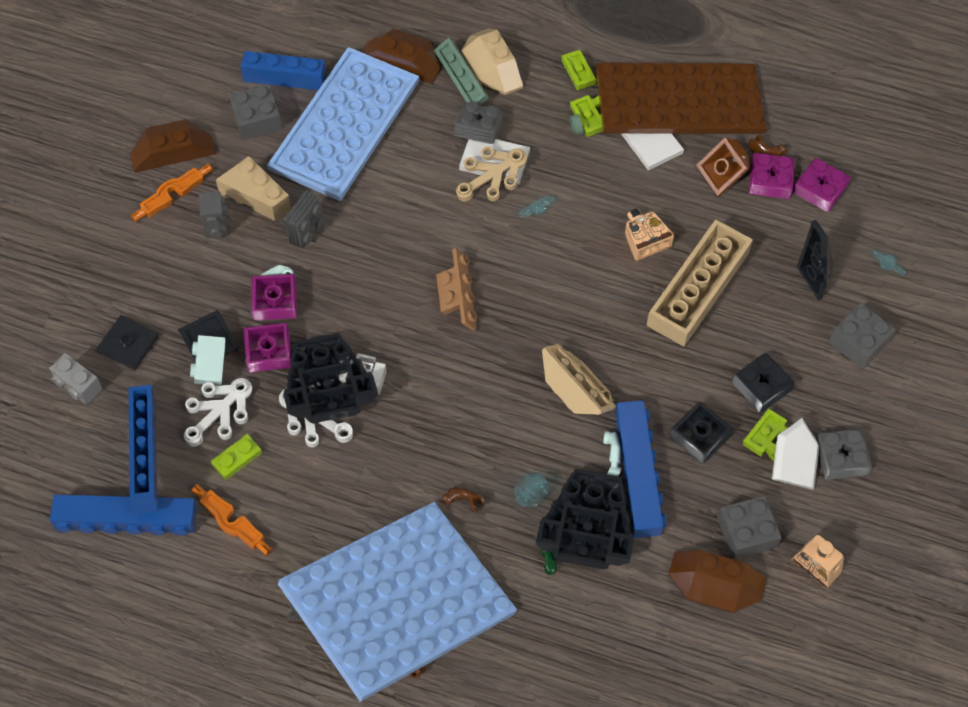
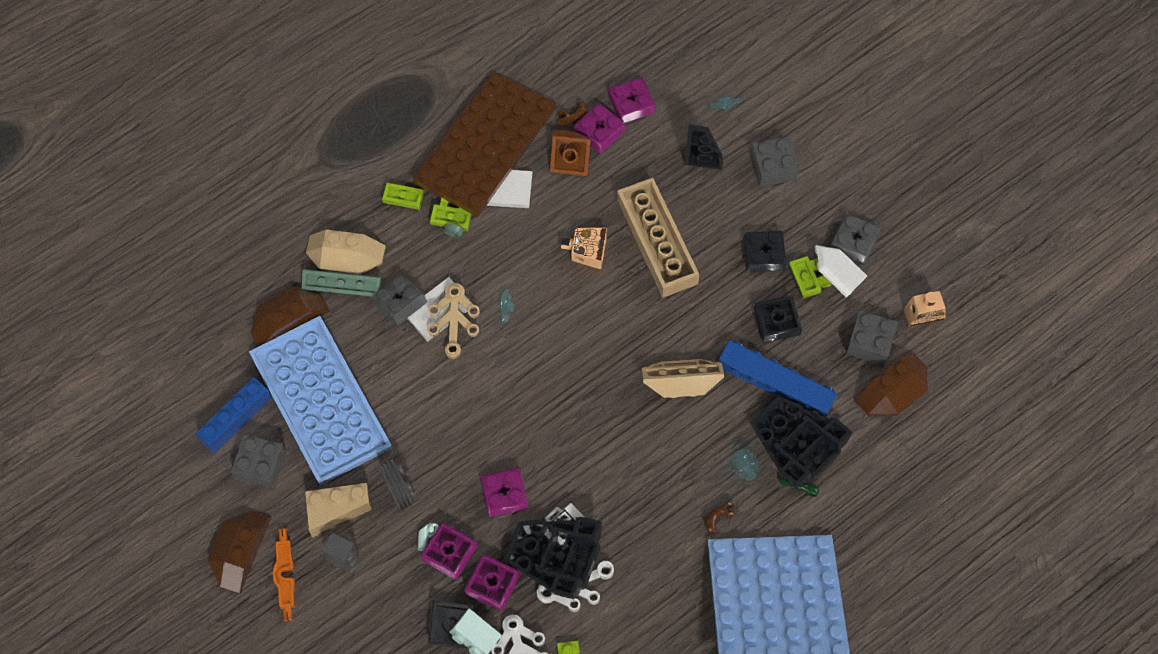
camera: 55 degrees left, 5 degrees up
(360, 320) = (513, 483): none -> magenta brick
(455, 290) = (537, 412): medium nougat bracket -> none
(615, 452) = (740, 382): light aqua arm -> none

